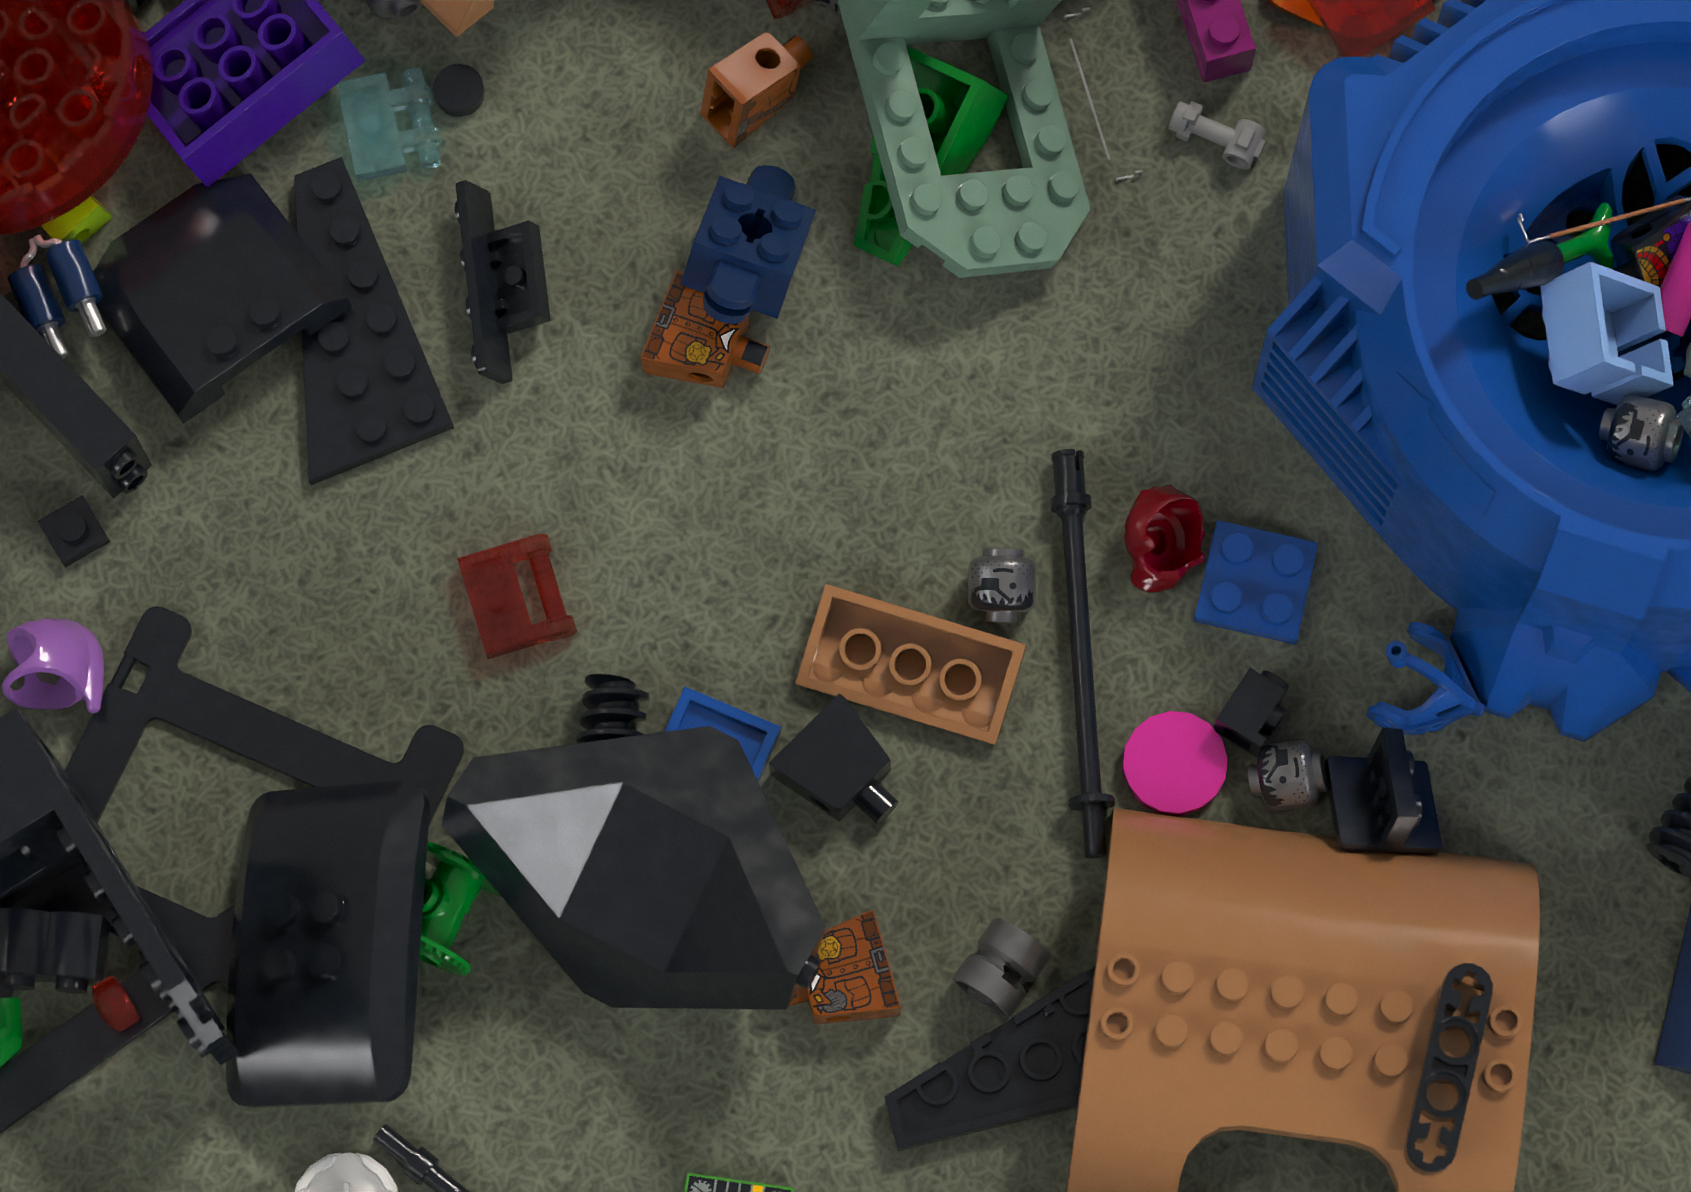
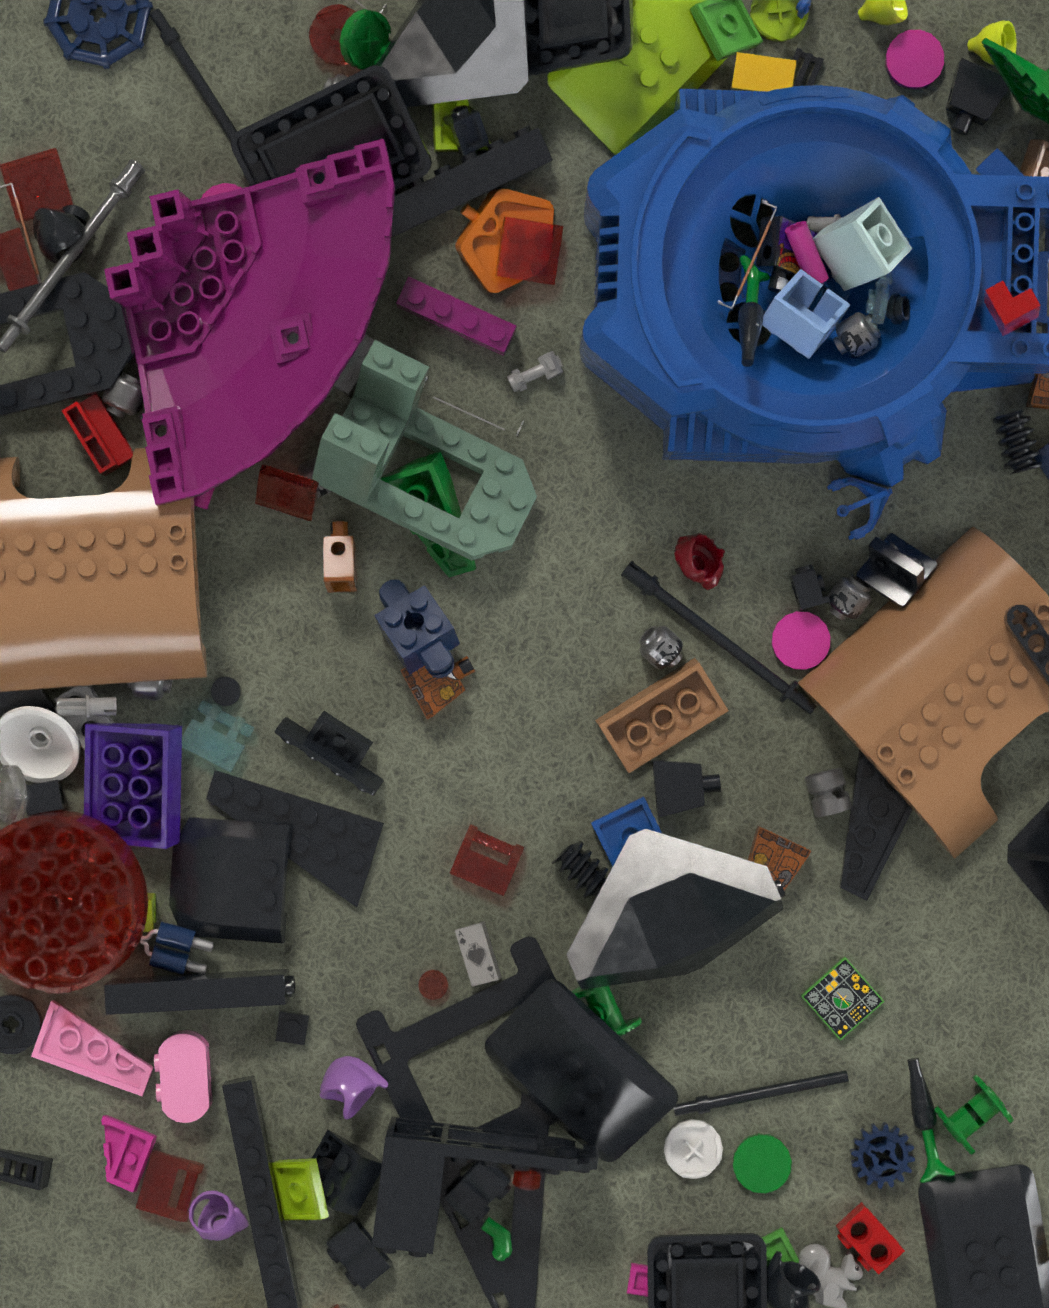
camera: 55 degrees left, 15 degrees up
(286, 666) = (433, 984): none -> clear red tile
(378, 688) = (478, 954): none -> light grey tile
(1256, 582) = (751, 535): blue plate -> none

